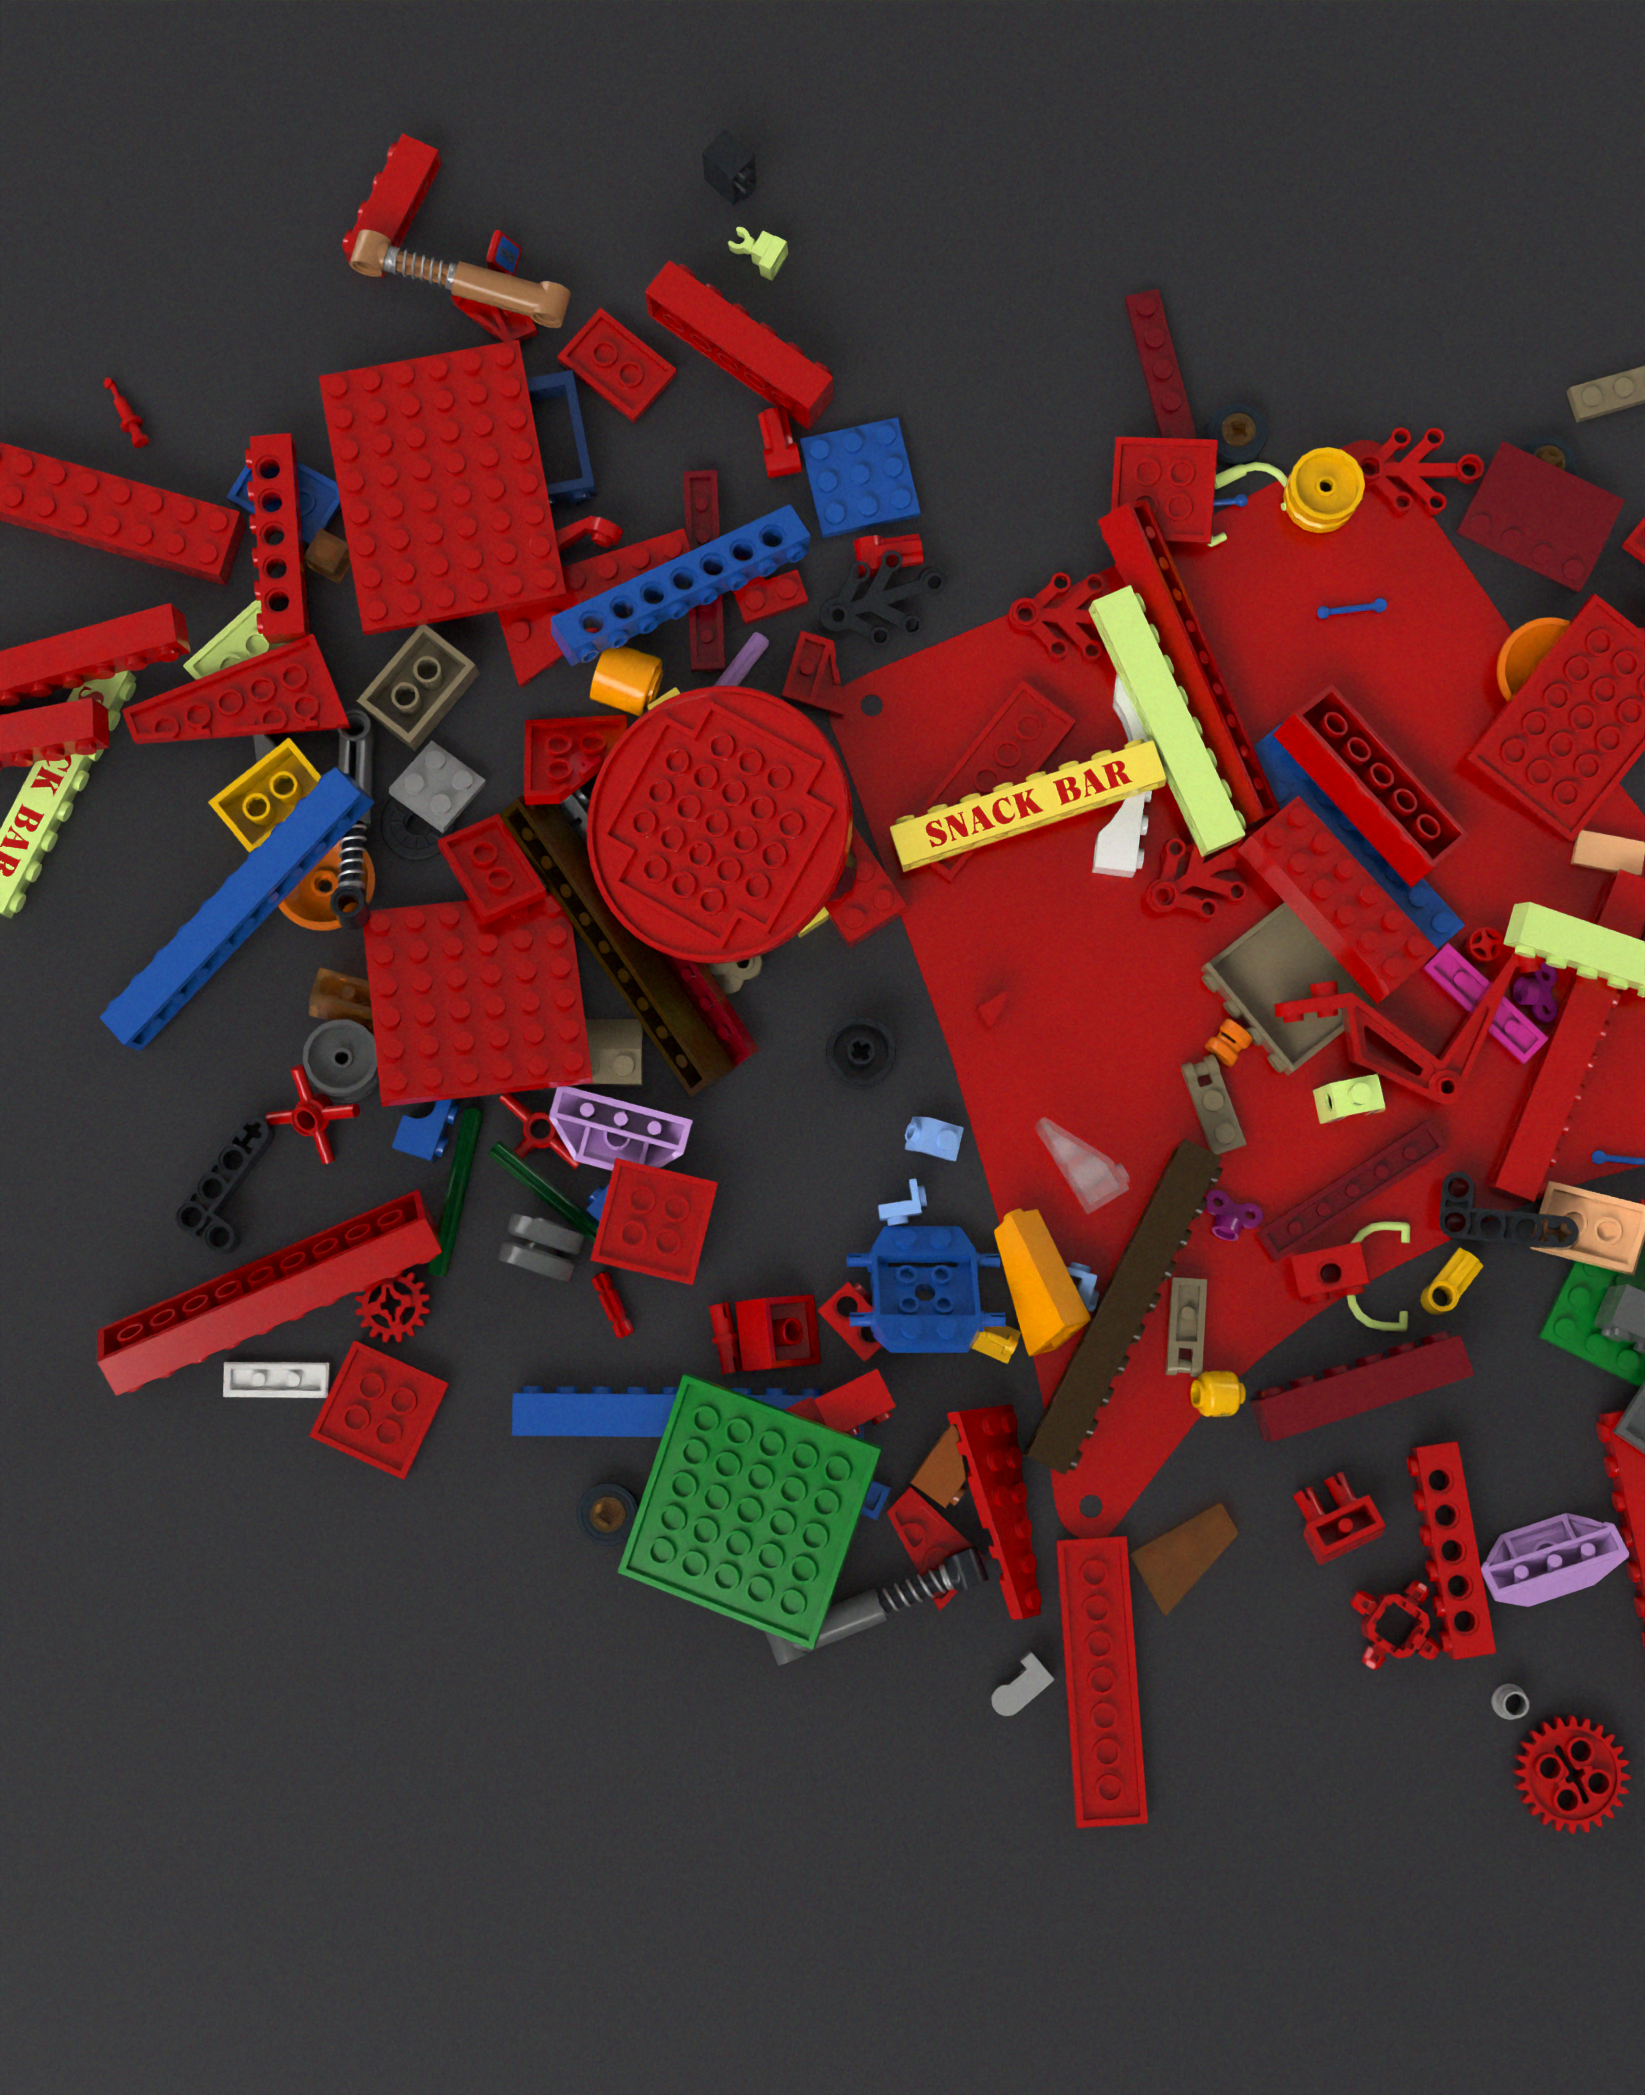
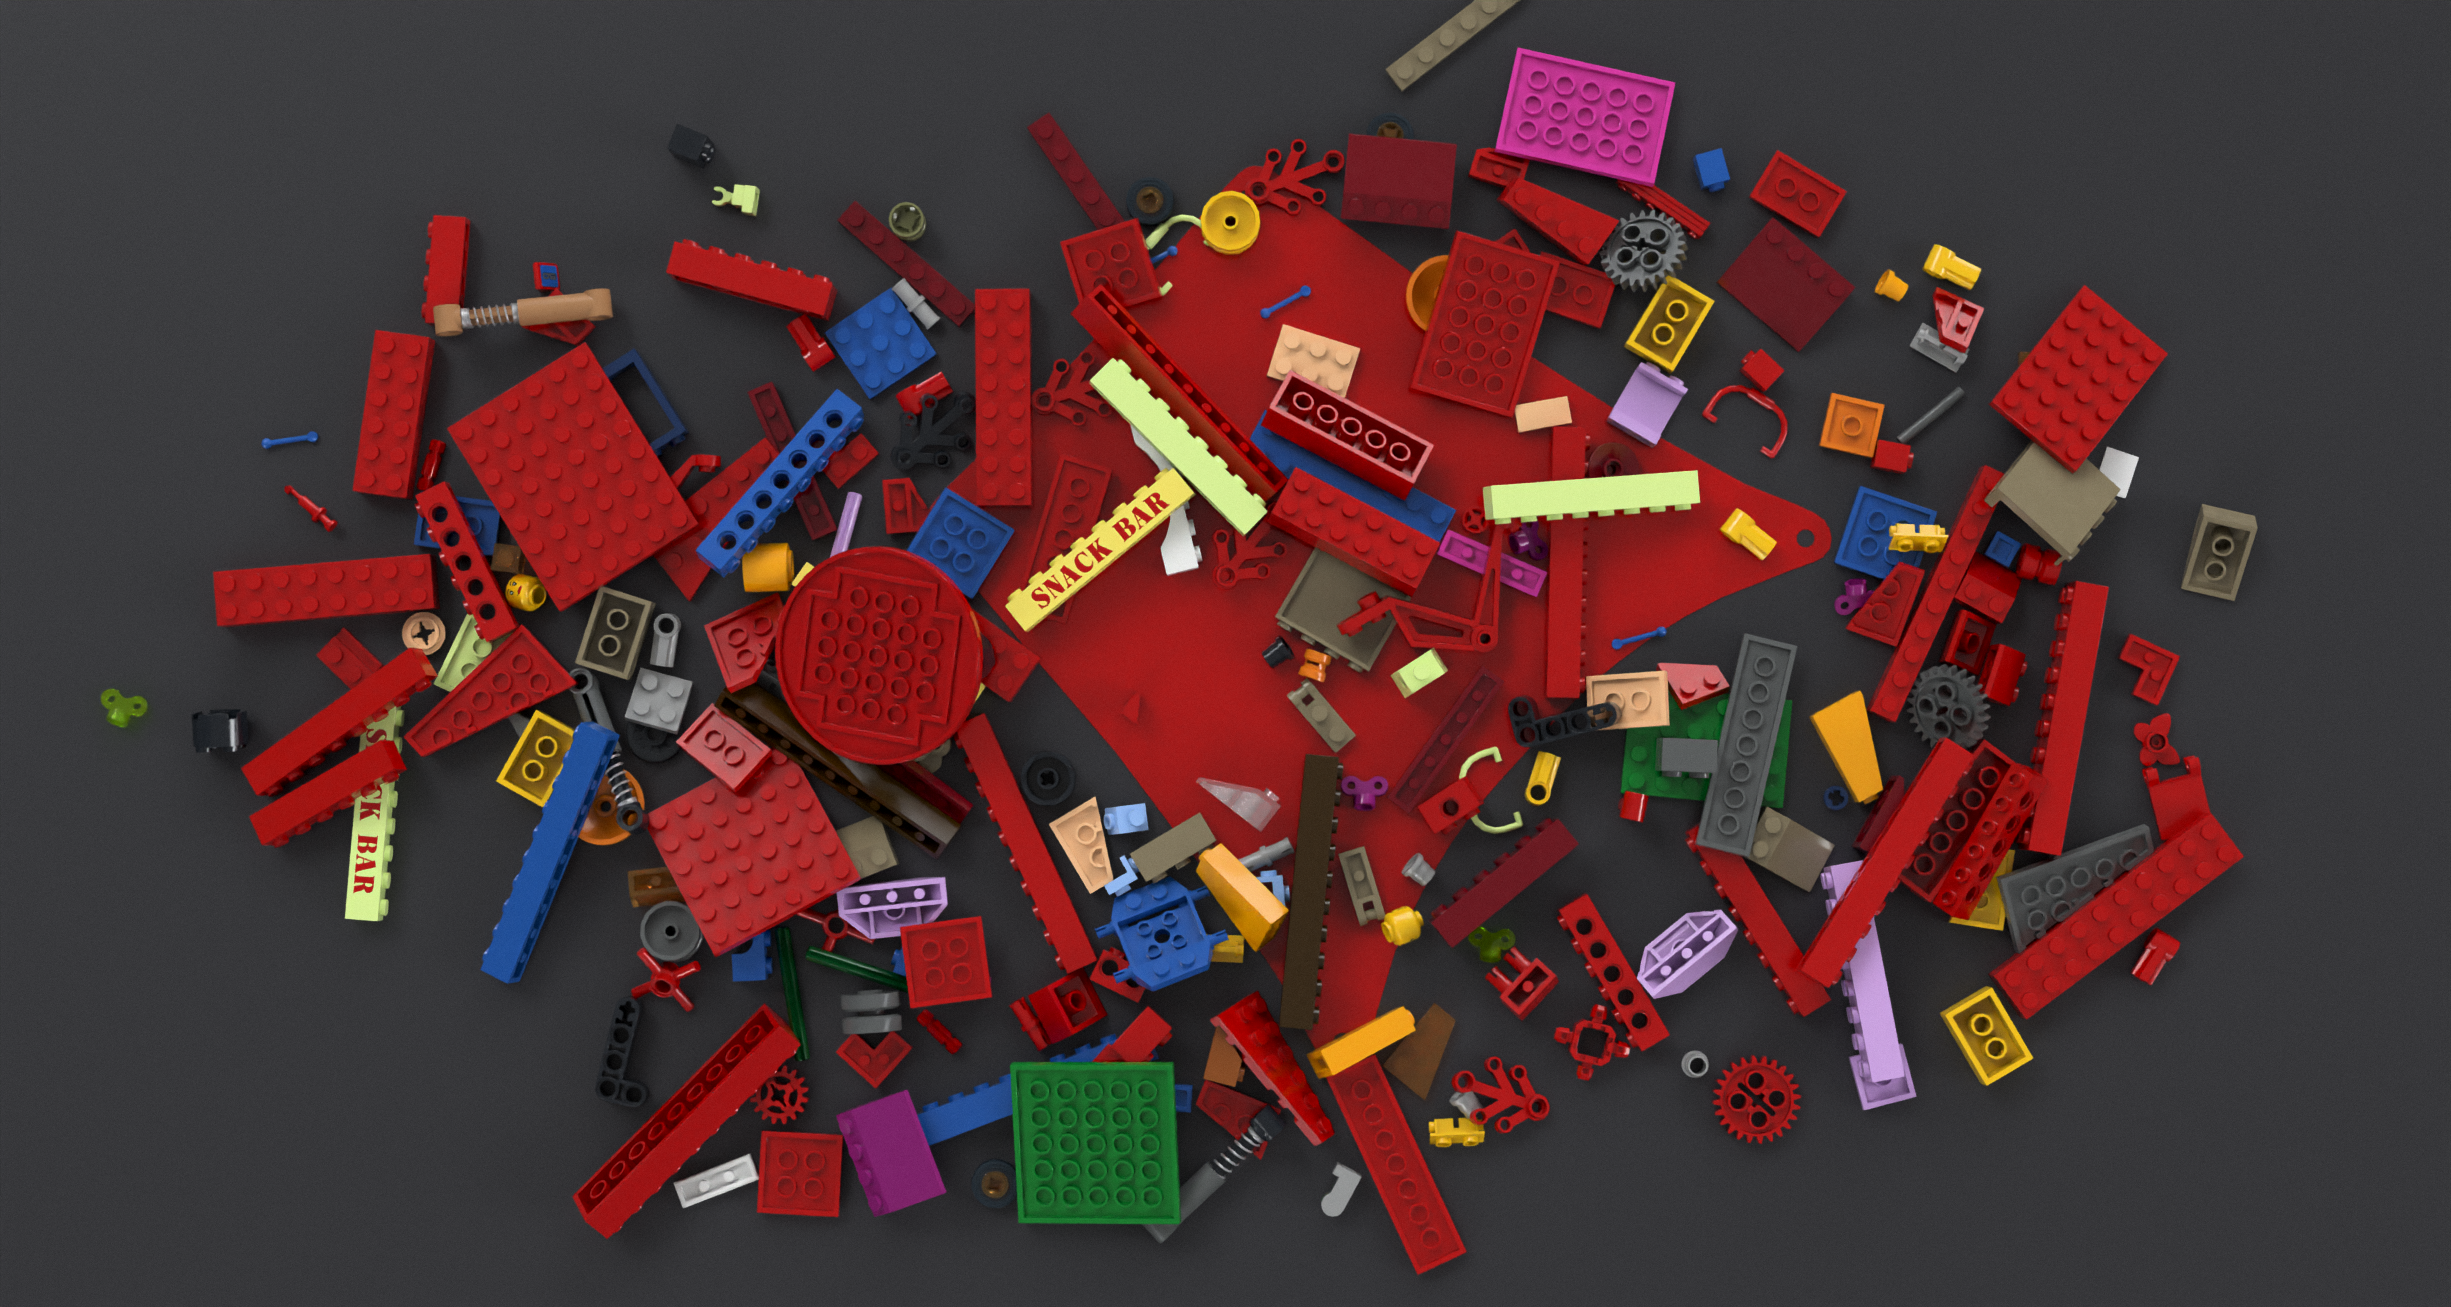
camera: 20 degrees left, 5 degrees up
(95, 596) = (349, 658): none -> red plate
(160, 333) = (311, 436): none -> blue hinge
(209, 595) = (413, 627): none -> light nougat gear
(264, 342) = (393, 415): none -> red brick
(286, 414) = (431, 464): none -> red axle
(332, 601) = (525, 592): none -> yellow head
(471, 722) = (665, 643): none -> light grey piece
(497, 1426) = (890, 1153): none -> magenta slope
(521, 1312) = (874, 1063): none -> red plate
(617, 365) = (665, 328): red plate -> none
(803, 1120) = (1026, 844): none -> red brick
(870, 733) = (961, 540): none -> blue plate
(873, 1148) = (1085, 845): none -> light nougat wing
(918, 446) = (915, 303): none -> light grey pin
(926, 399) = (907, 263): none -> dark red plate
(949, 341) = (907, 221): none -> olive wheel
(978, 1193) = (1173, 848): none -> dark tan brick
(979, 591) = (1003, 398): none -> red brick
(1088, 1246) = (1267, 855): none -> light grey pin
(1115, 1515) = (1361, 1042): none -> light orange slope
(1173, 1668) = (1444, 1134): none -> yellow hinge
(1189, 1011) = (1278, 652): none -> black piece
(1215, 1638) = (1466, 1102): none -> light grey piece
(1262, 1334) = (1418, 870): none -> light grey piece
(1265, 1649) = (1505, 1096): none -> red plant
(1316, 1458) = (1491, 943): none -> clear neon green piece
(1363, 682) = (1314, 358): none -> light nougat plate
(1552, 1356) = (1633, 806): none -> red piece

